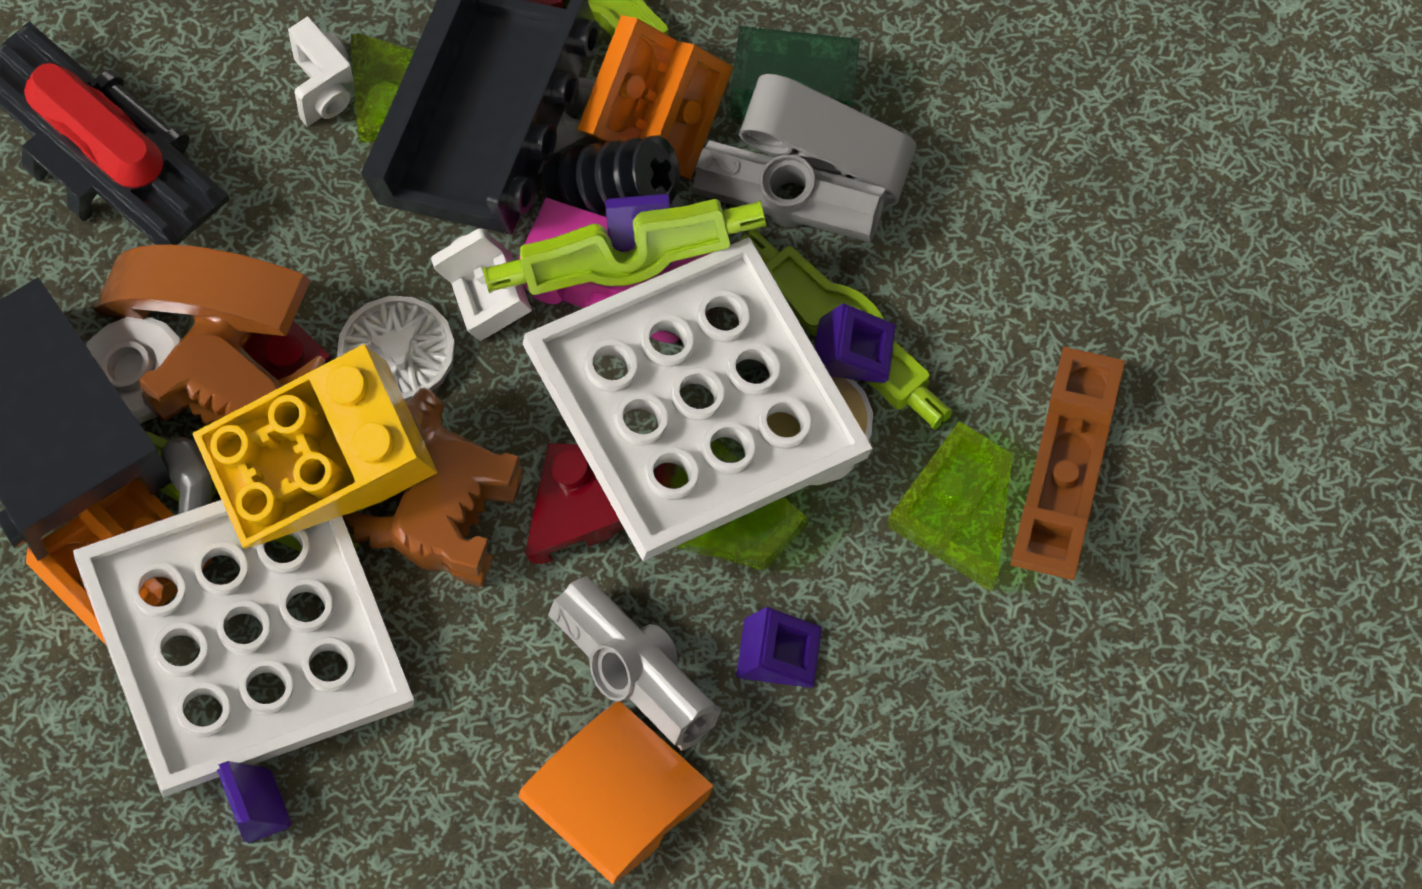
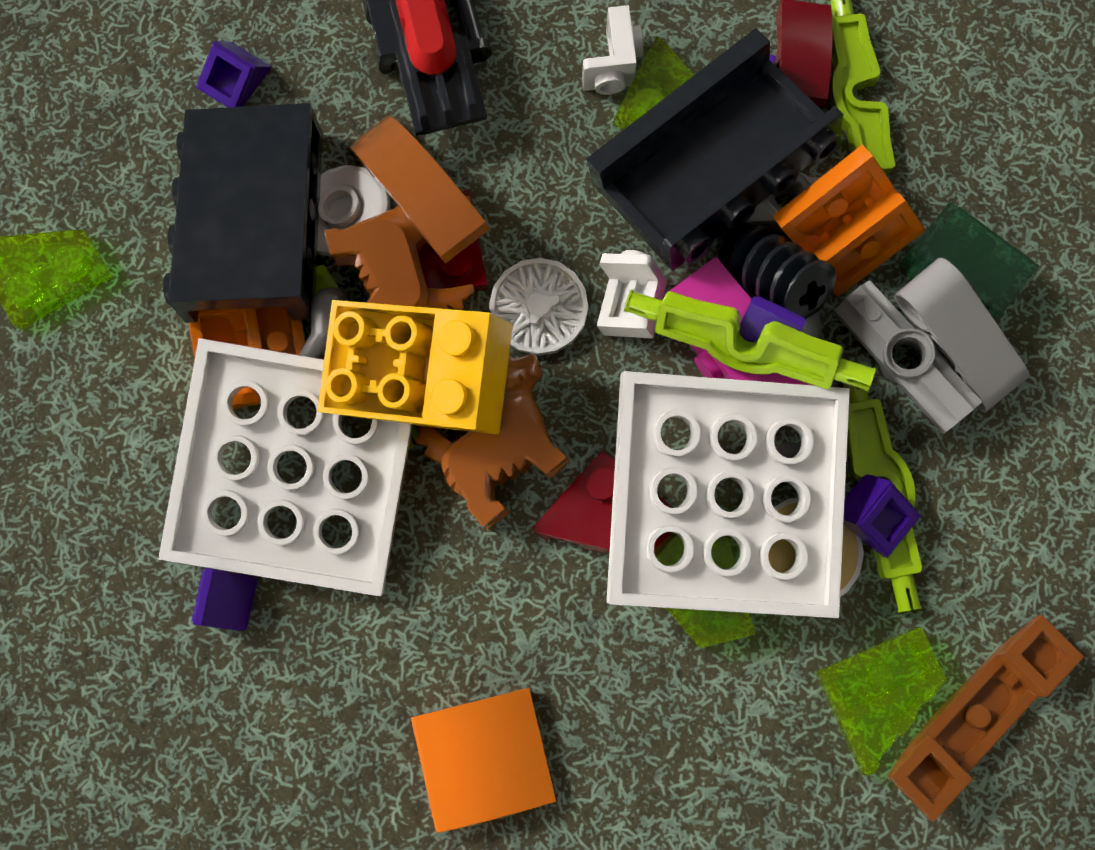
camera: 35 degrees right, 15 degrees up
(634, 663) = (555, 671): light grey piece -> none
(778, 649) = (672, 719): dark purple slope -> none

